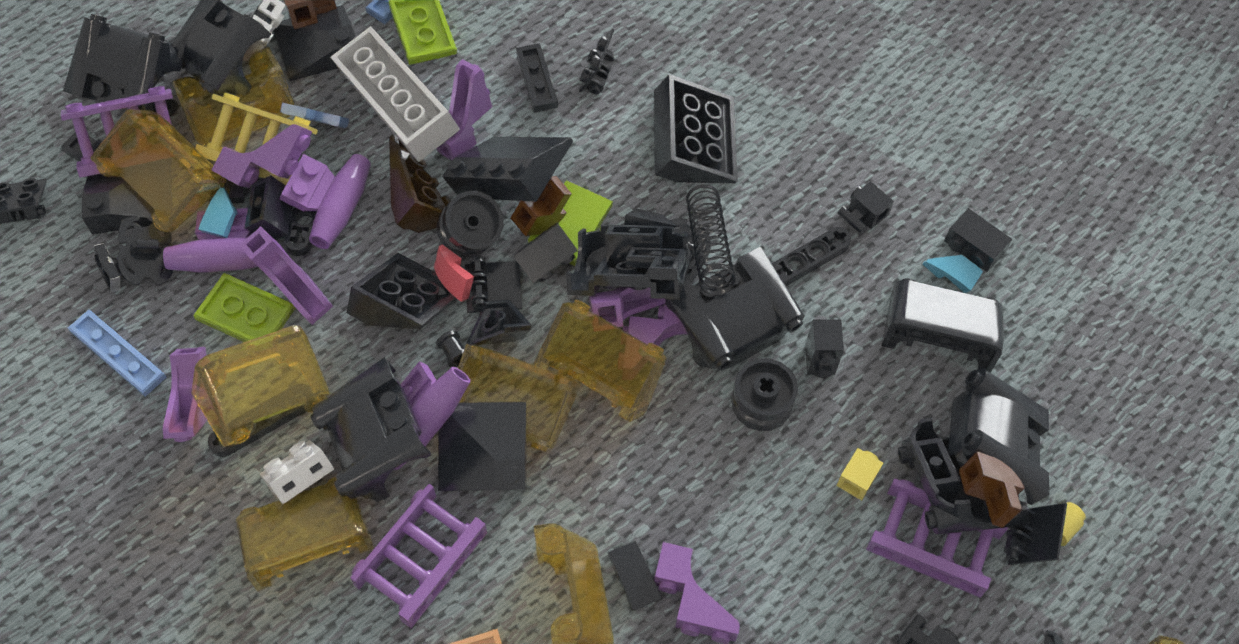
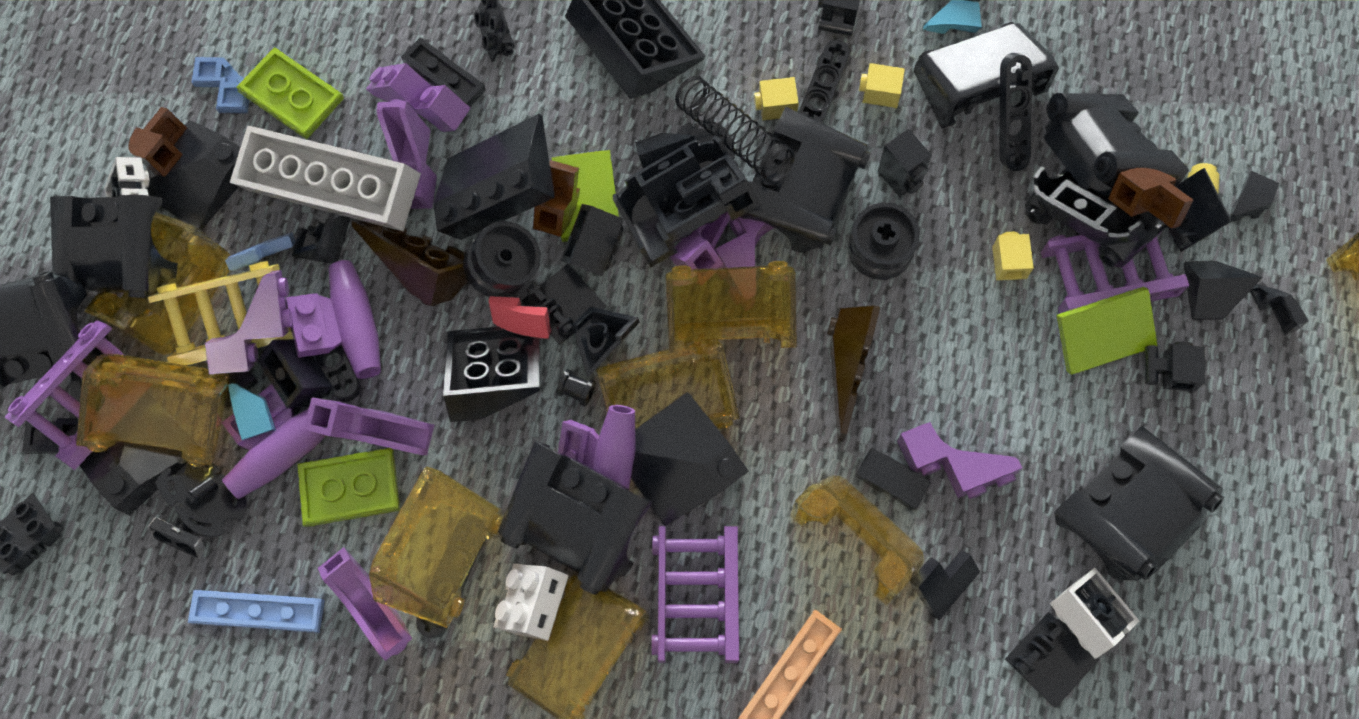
camera: 30 degrees left, 10 degrees up
(364, 136) = (323, 241): none -> black slope
(503, 76) = (433, 103): none -> medium lavender arch
(679, 454) = (849, 348): none -> dark brown wedge
(768, 238) = (775, 96): none -> light yellow brick
(855, 283) = (882, 85): none -> light yellow brick
(892, 579) = (1106, 330): none -> lime tile
(945, 365) = (1021, 111): none -> black beam
(1013, 610) = (1216, 288): none -> black slope
(1104, 561) = (1255, 196): none -> black slope

